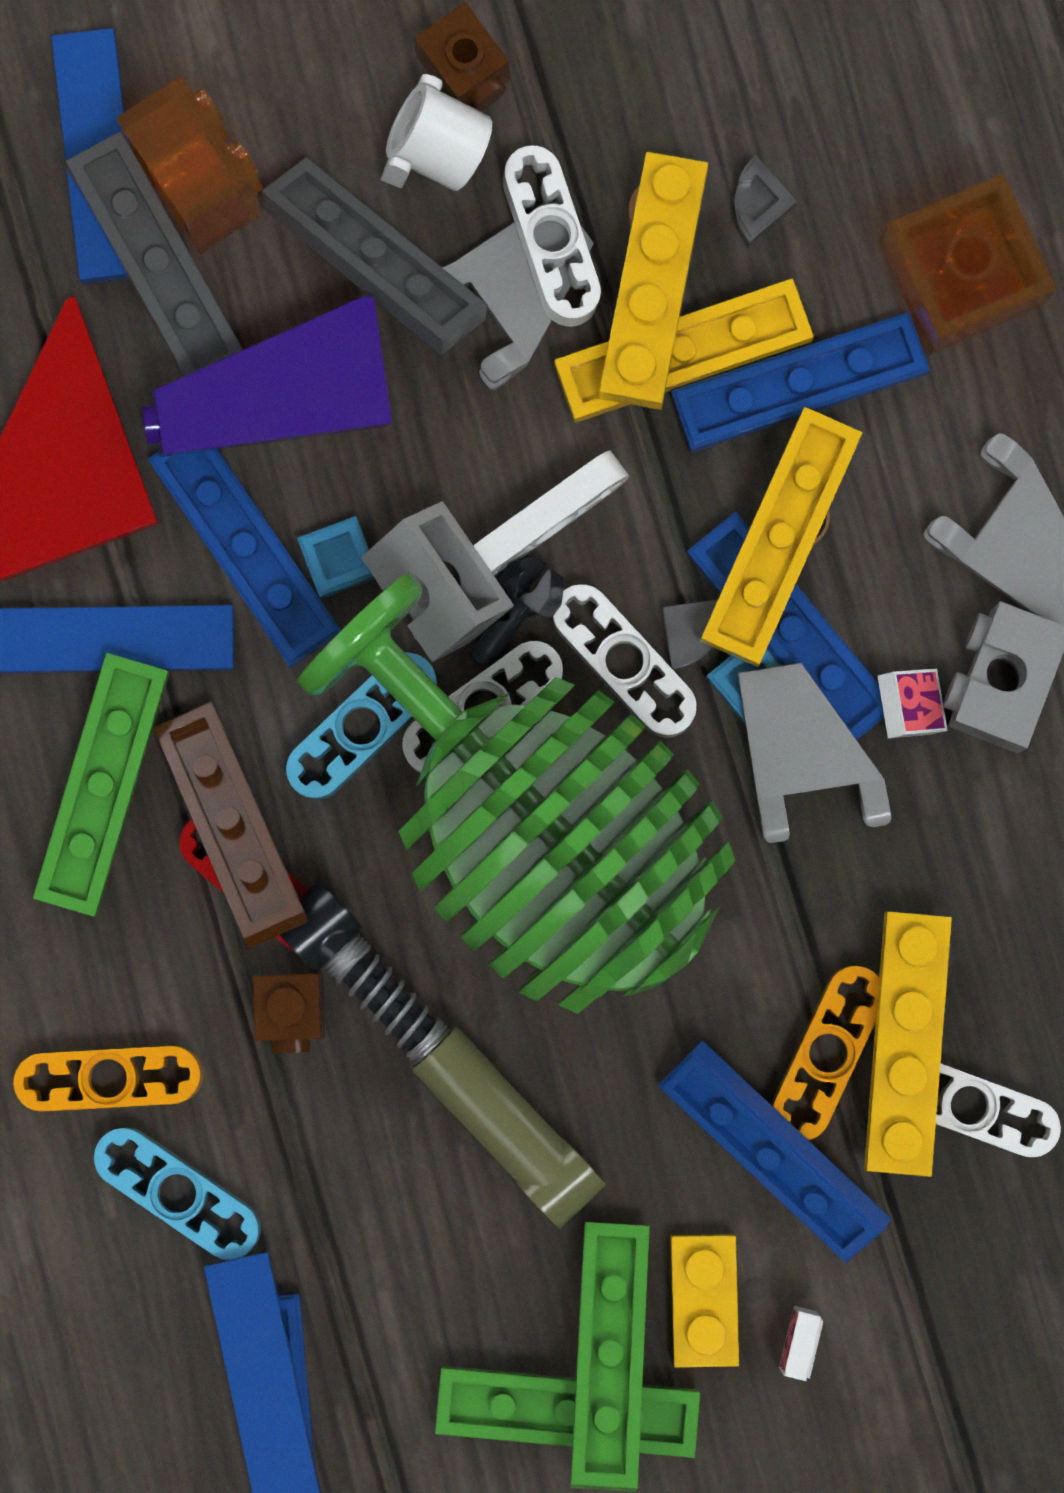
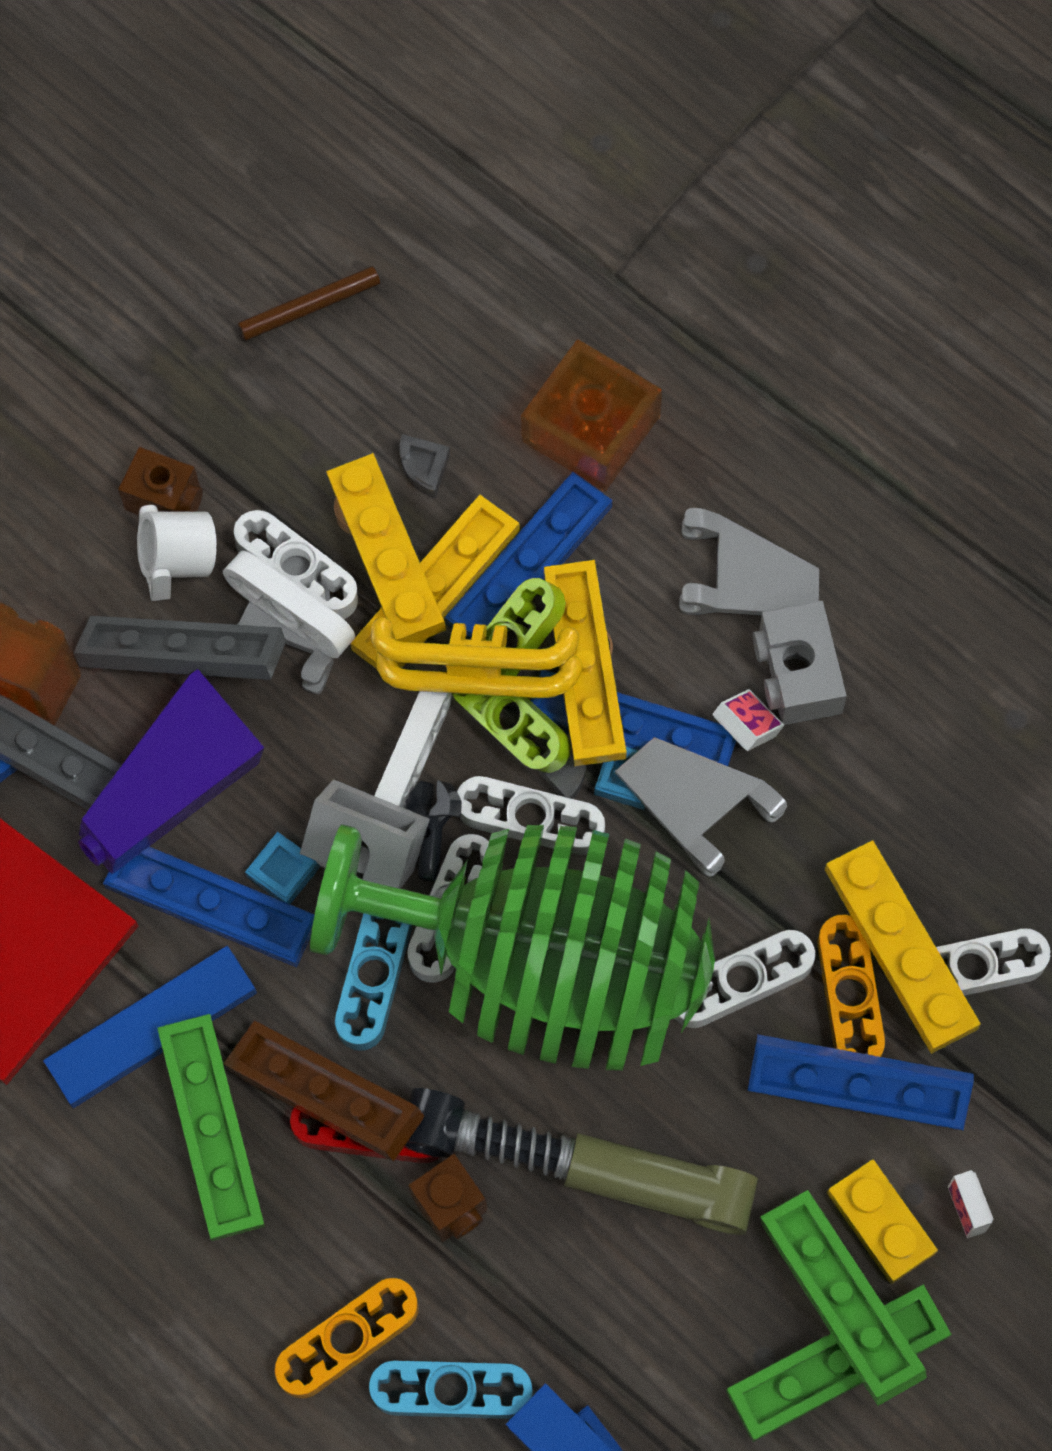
camera: 30 degrees left, 15 degrees down
(515, 278) = (289, 604): none -> white beam
(664, 474) = (476, 663): none -> yellow piece
(676, 508) = (532, 720): none -> lime beam
(773, 990) = (783, 975): none -> white beam

